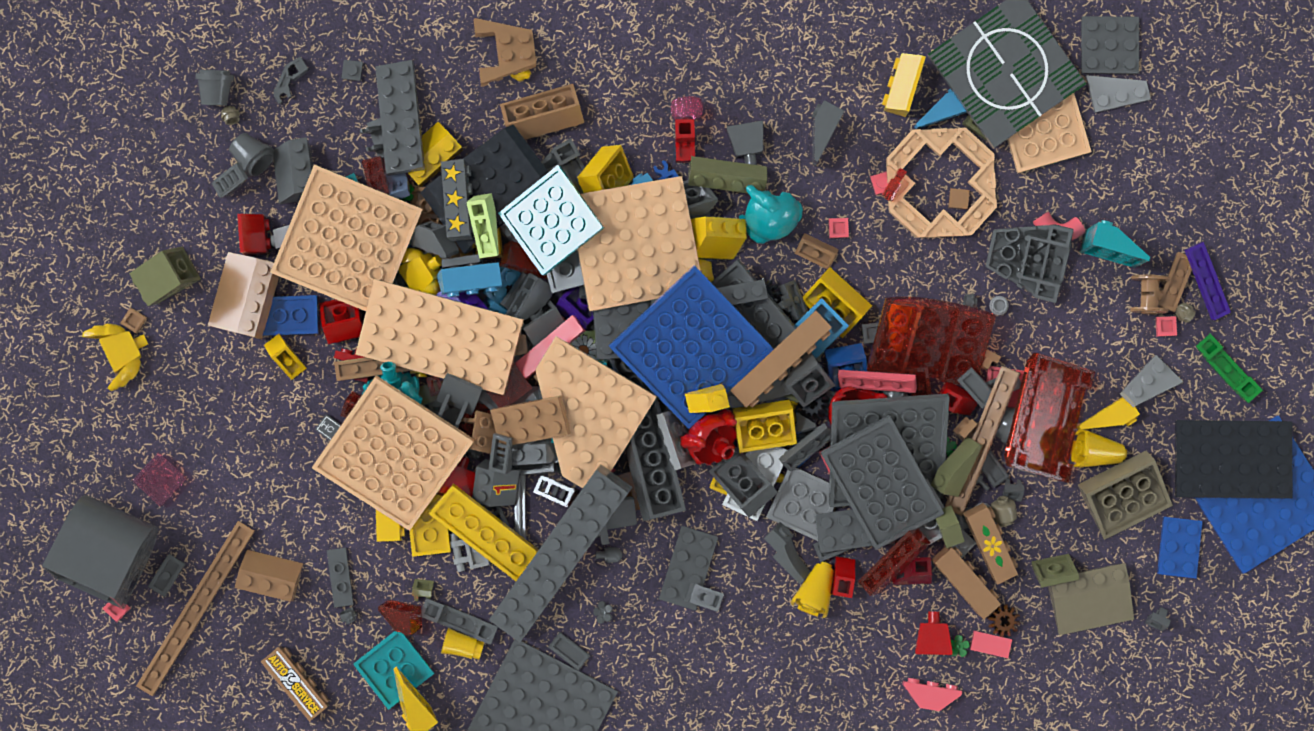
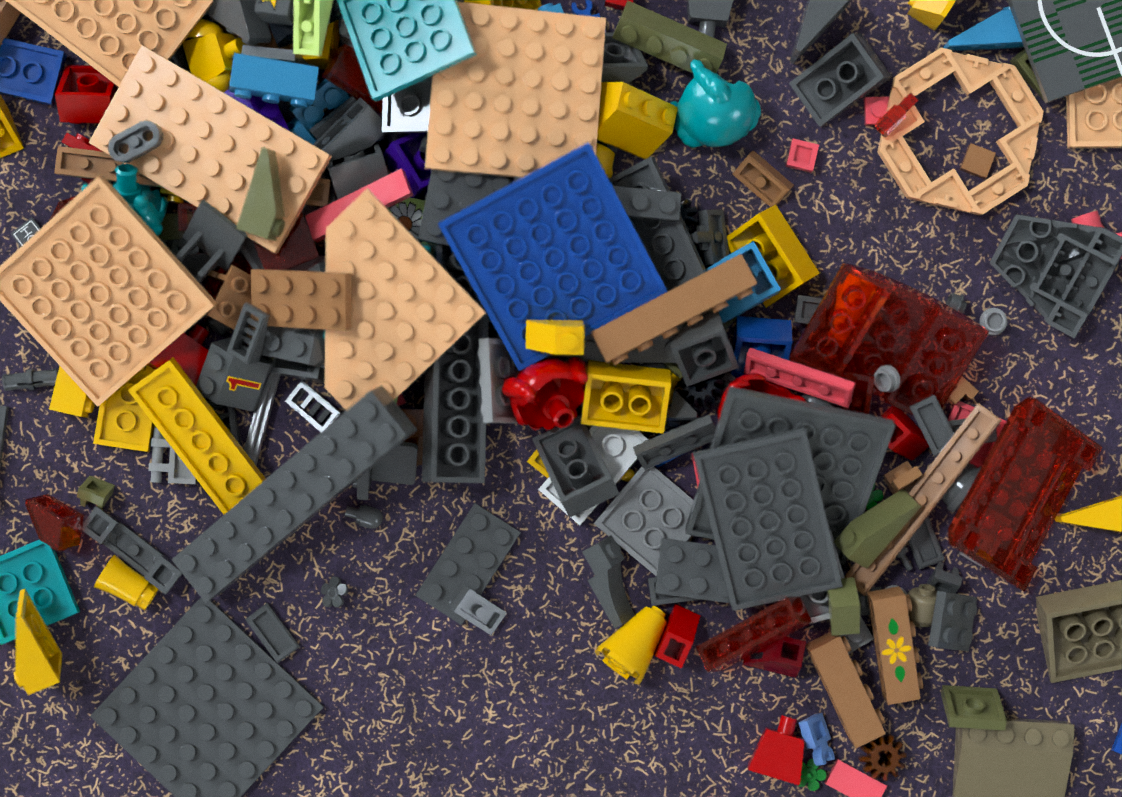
camera: 15 degrees right, 0 degrees up
(357, 524) = (29, 380): none -> dark grey pin
(389, 344) = (136, 140): none -> dark grey plate
(489, 365) = (263, 205): none -> olive slope
(850, 169) = (840, 79): none -> dark grey slope
(936, 365) = (887, 379): none -> light grey plate
(955, 619) = (816, 736): none -> medium blue plate
(1025, 516) = (953, 621): none -> dark grey plate
(1096, 450) = (1074, 556): yellow cone -> none

